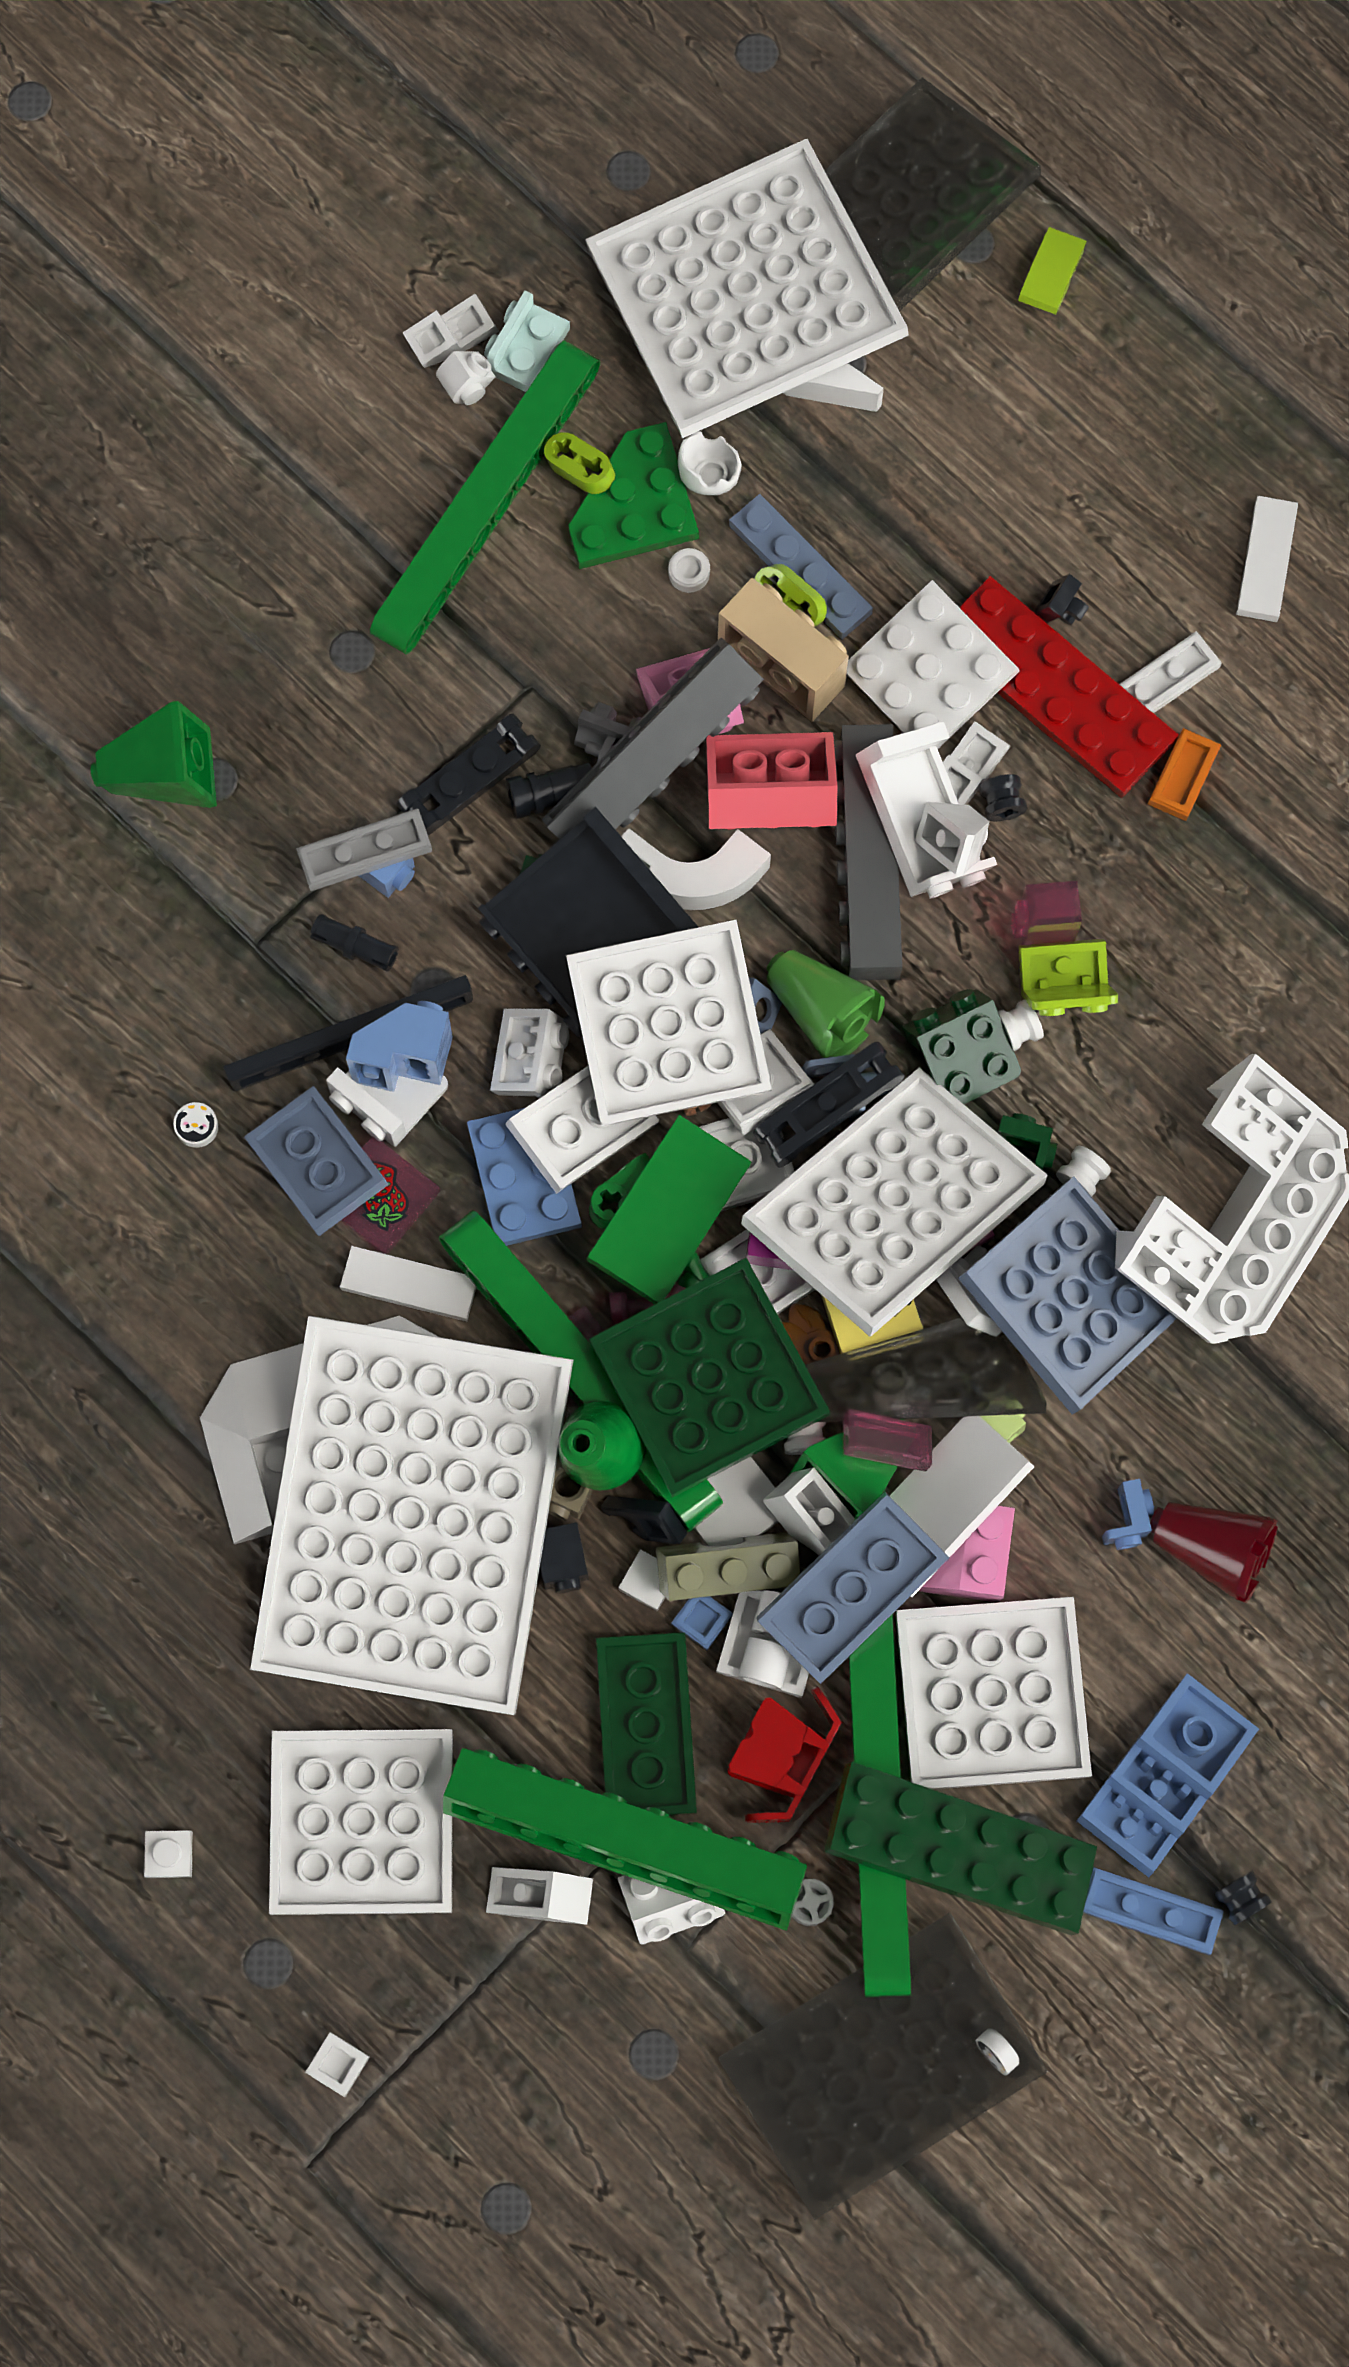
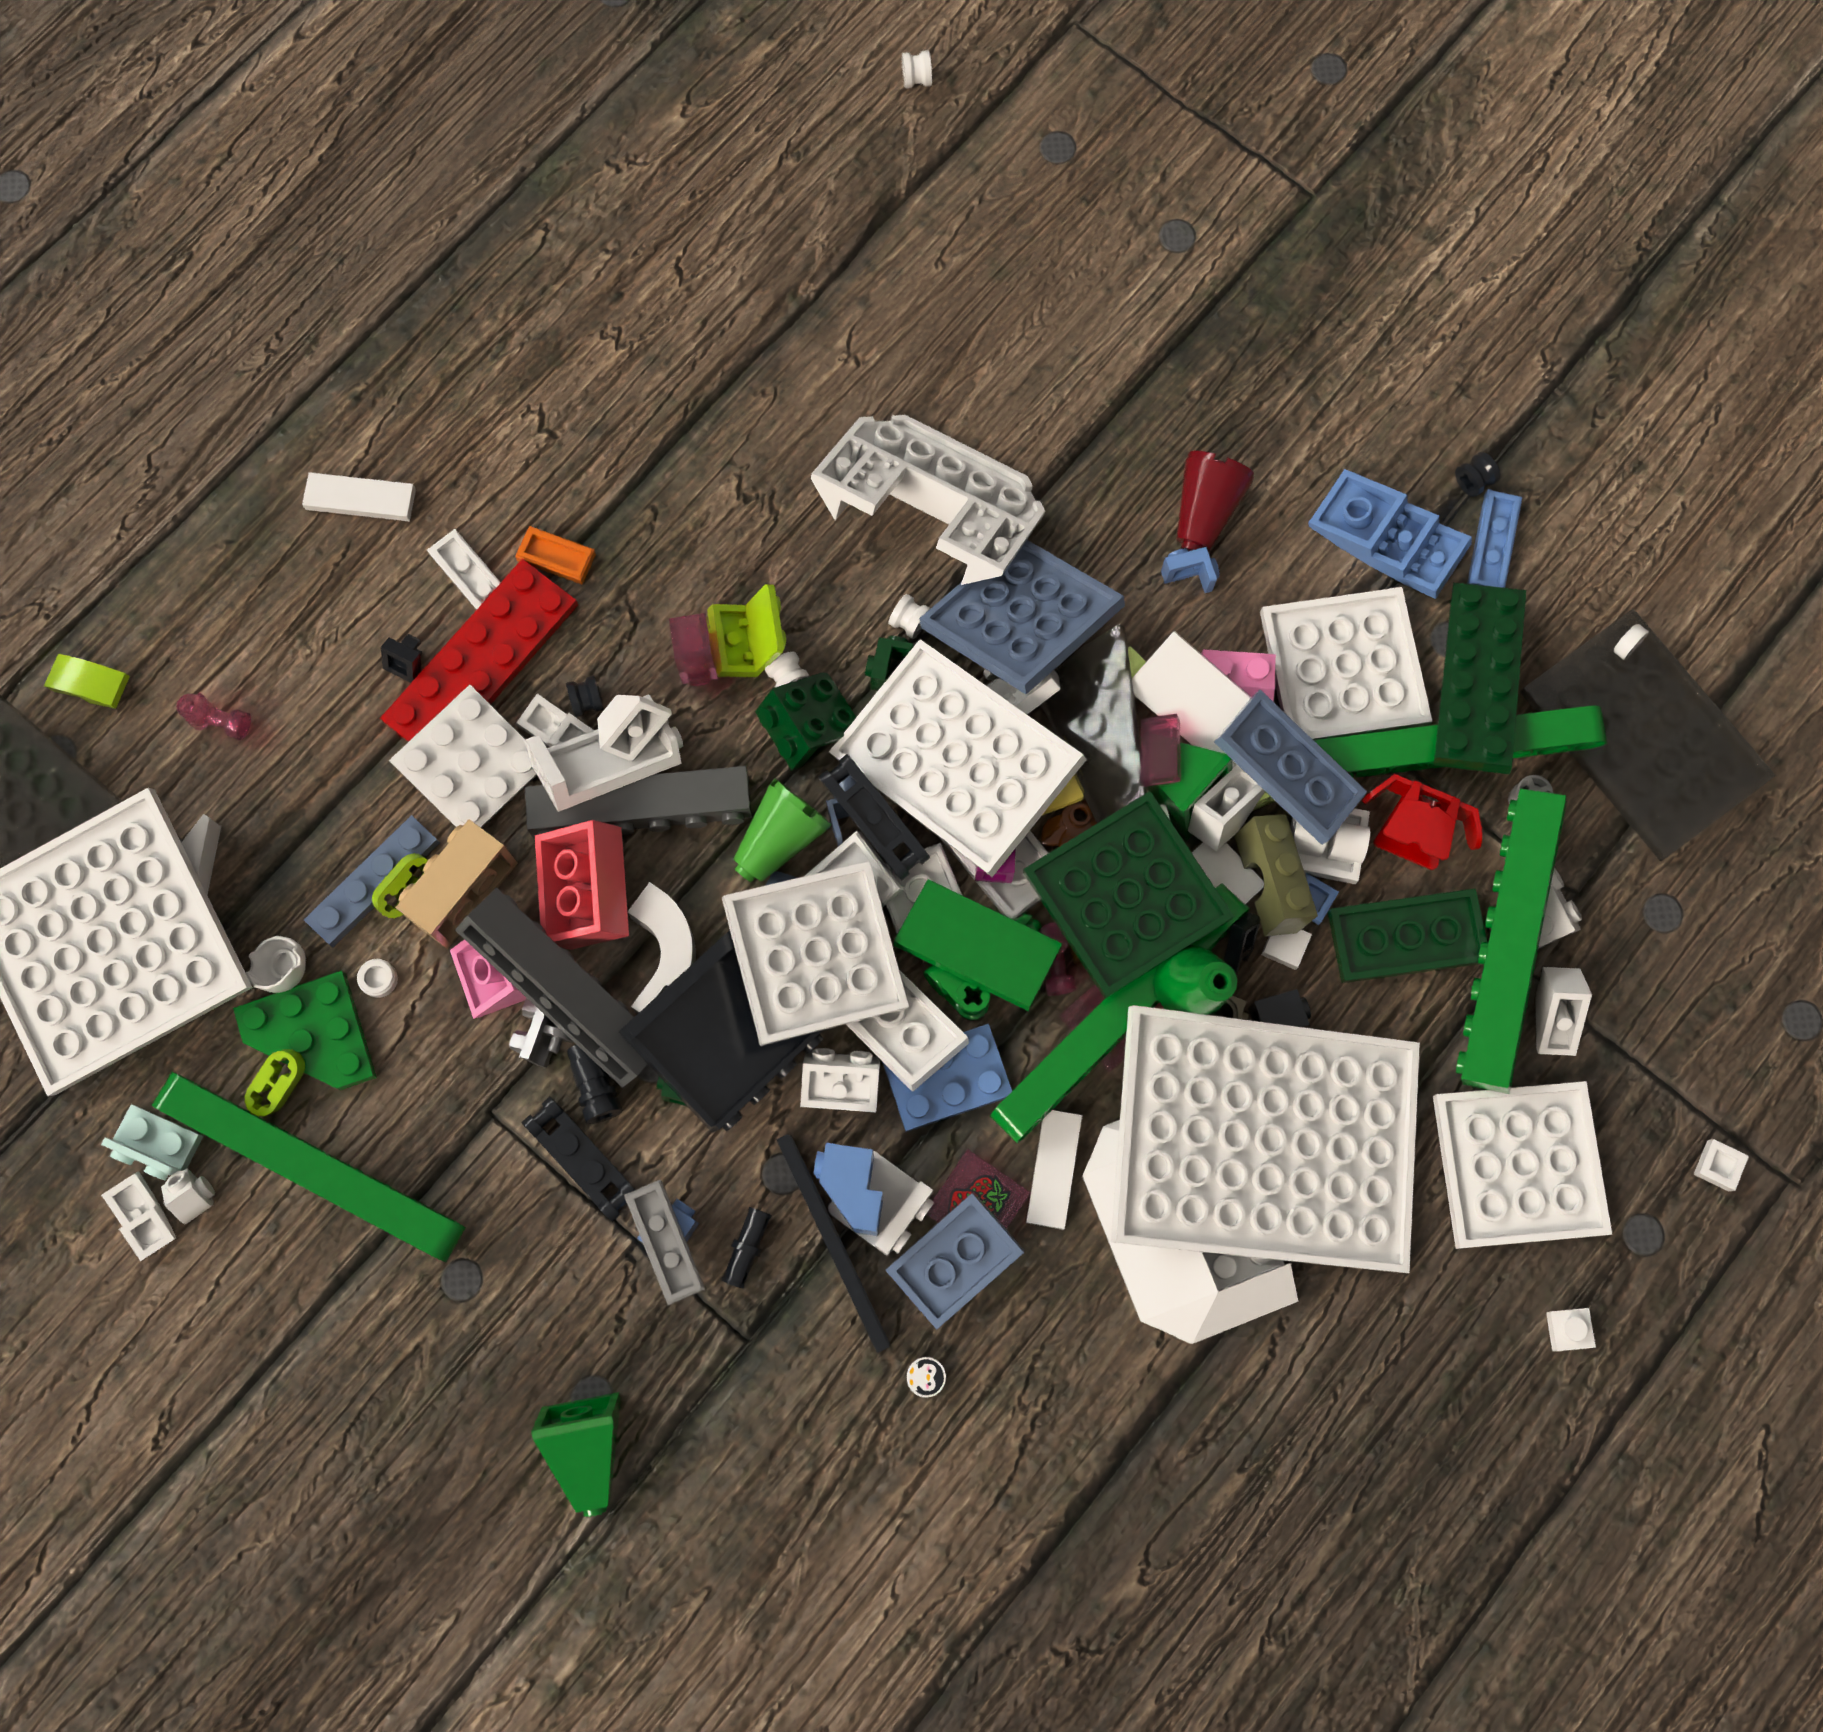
camera: 95 degrees left, 0 degrees up
(1008, 388) = (200, 712): none -> clear pink leg

